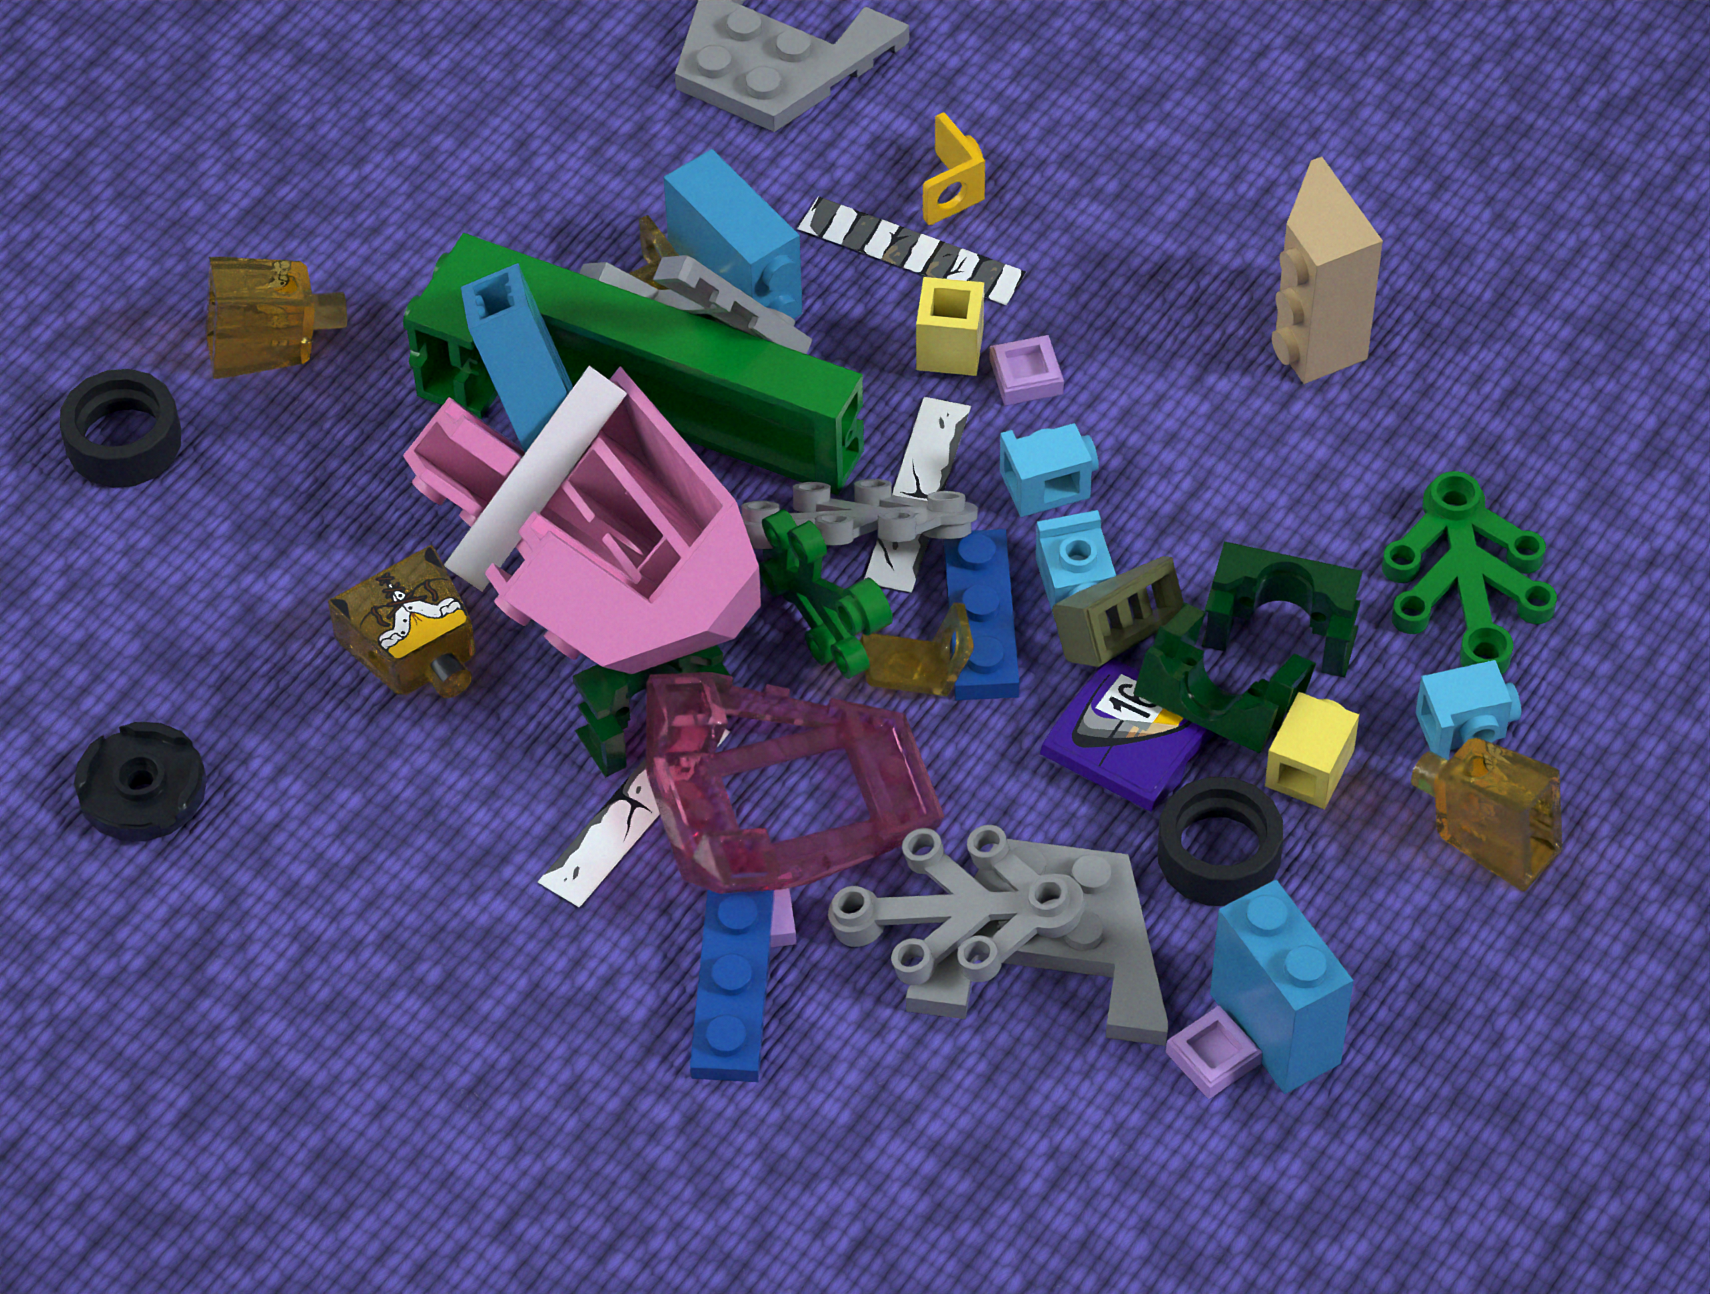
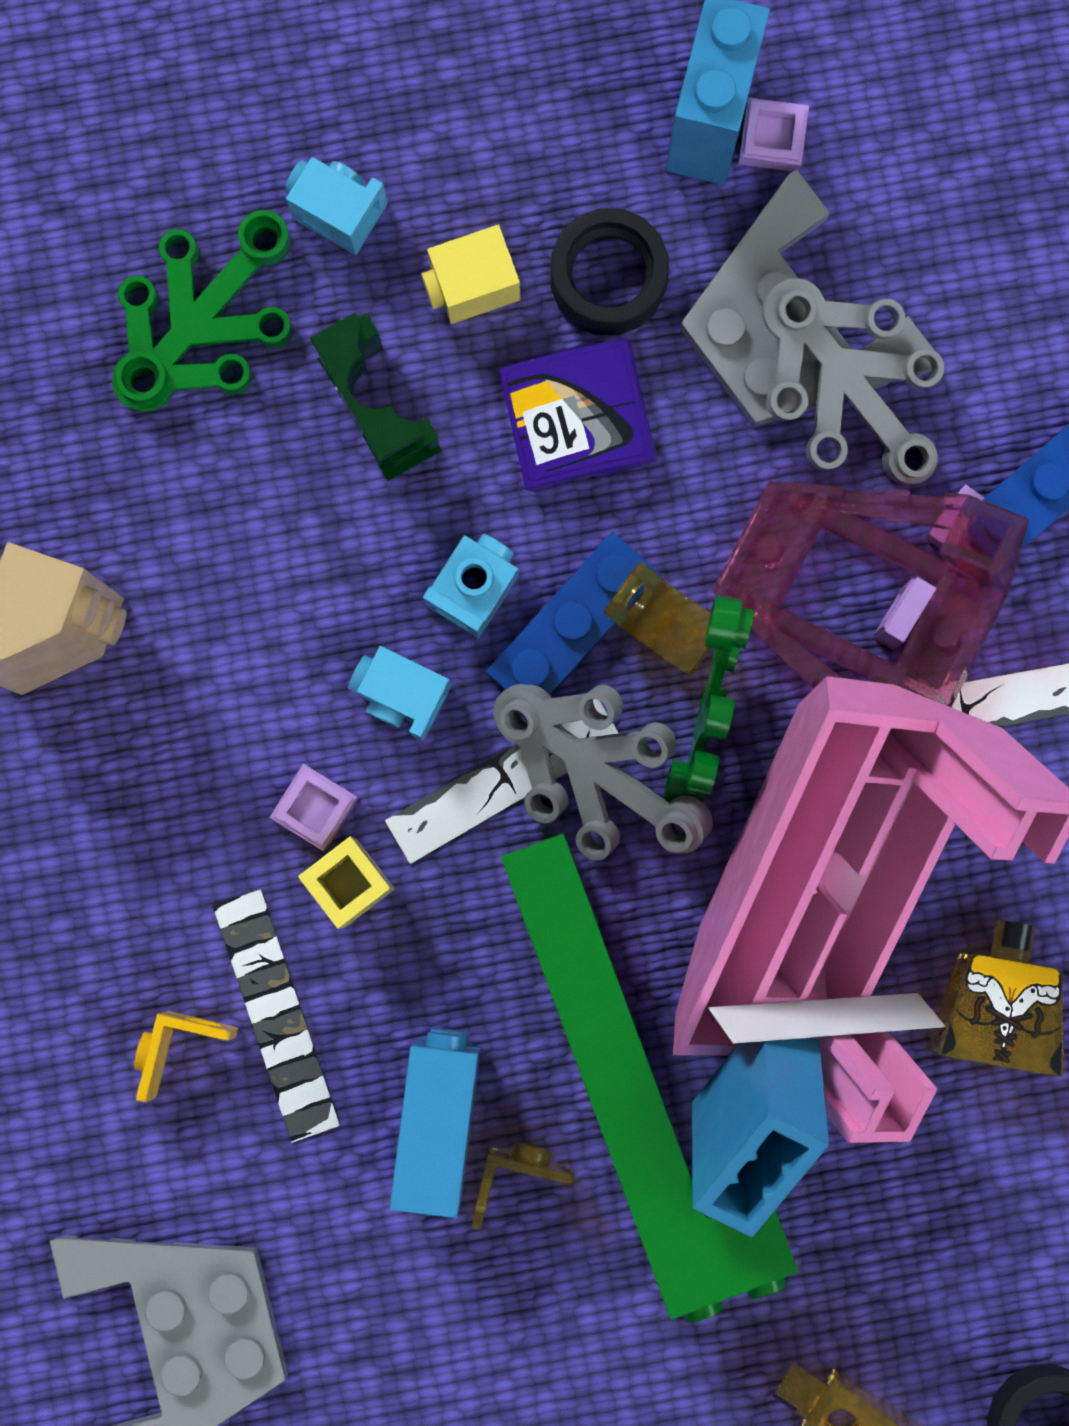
camera: 135 degrees left, 30 degrees up
(706, 295) = (534, 1039): light grey wing -> none
(747, 795) = (904, 613): none -> lavender tile
(1083, 616) = (491, 510): olive slope -> none
(1177, 681) = (501, 370): dark green piece -> none
(1496, 808) = (407, 84): clear yellow torso -> none

